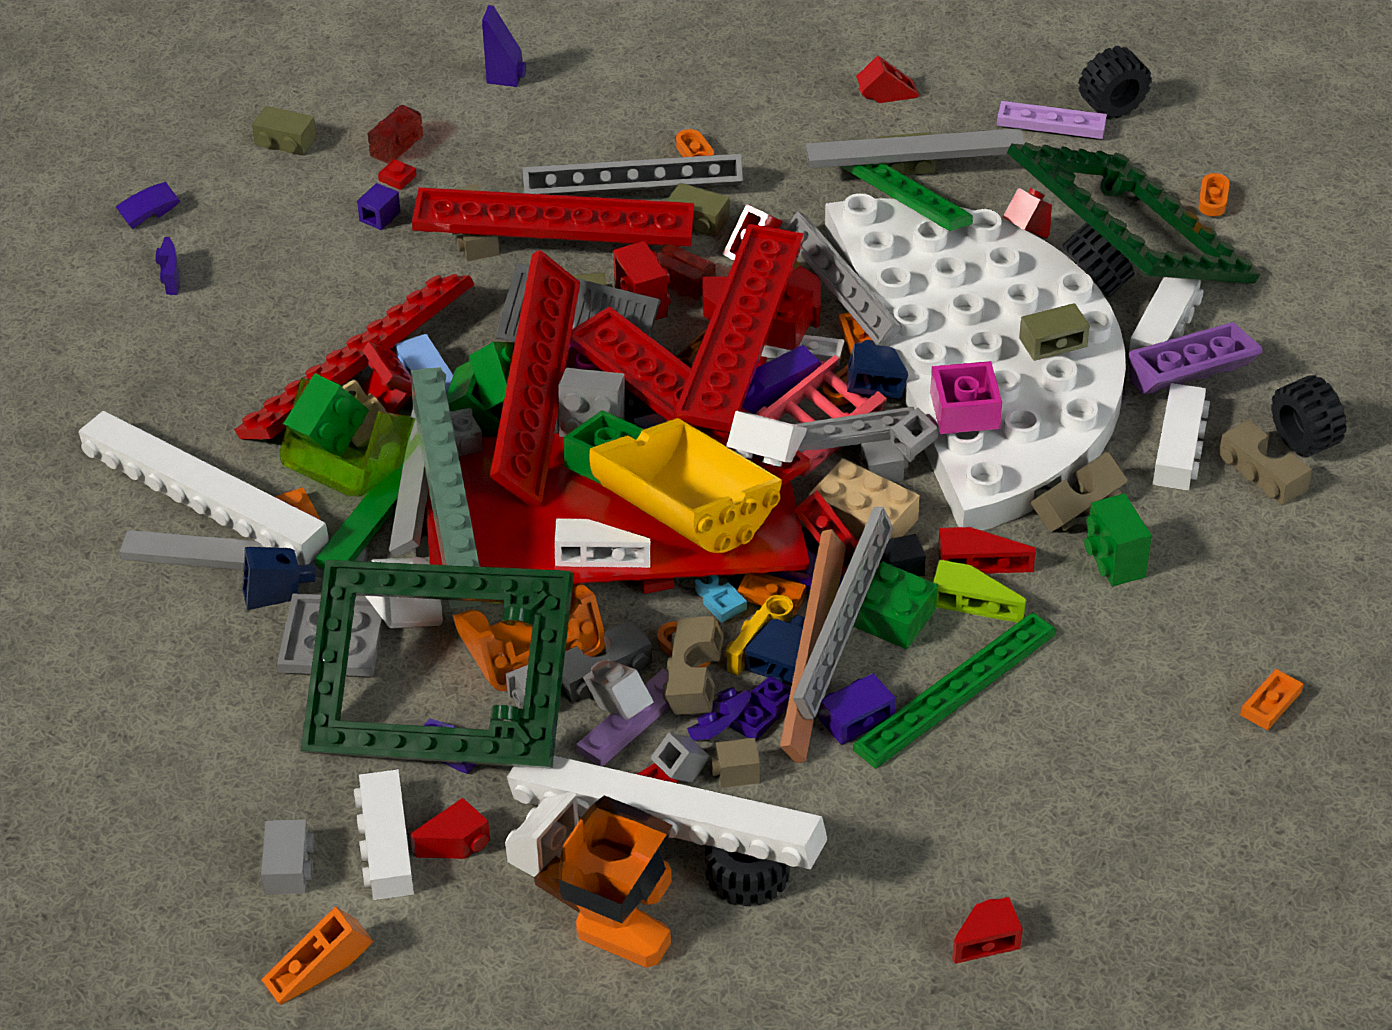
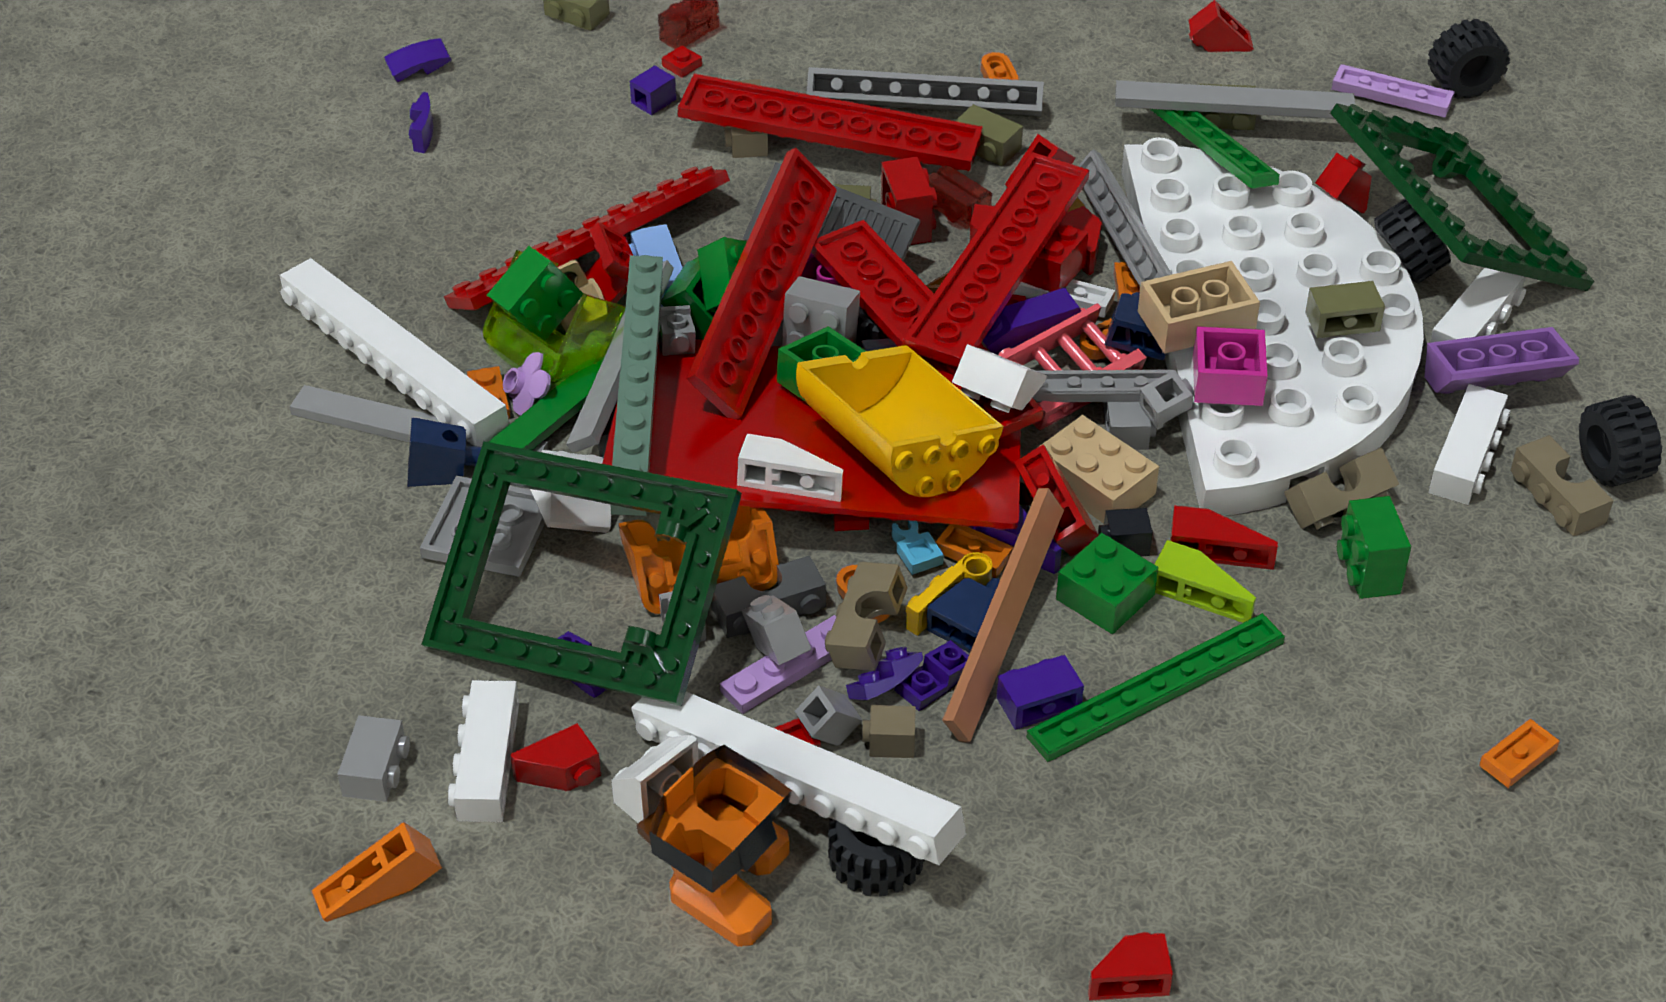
camera: 10 degrees right, 0 degrees up
(335, 499) = (527, 383): none -> lavender plate
(843, 613) = (1042, 584): light grey tile -> none
(924, 341) = (1194, 298): none -> tan brick
(1214, 194) = (1557, 190): orange plate -> none

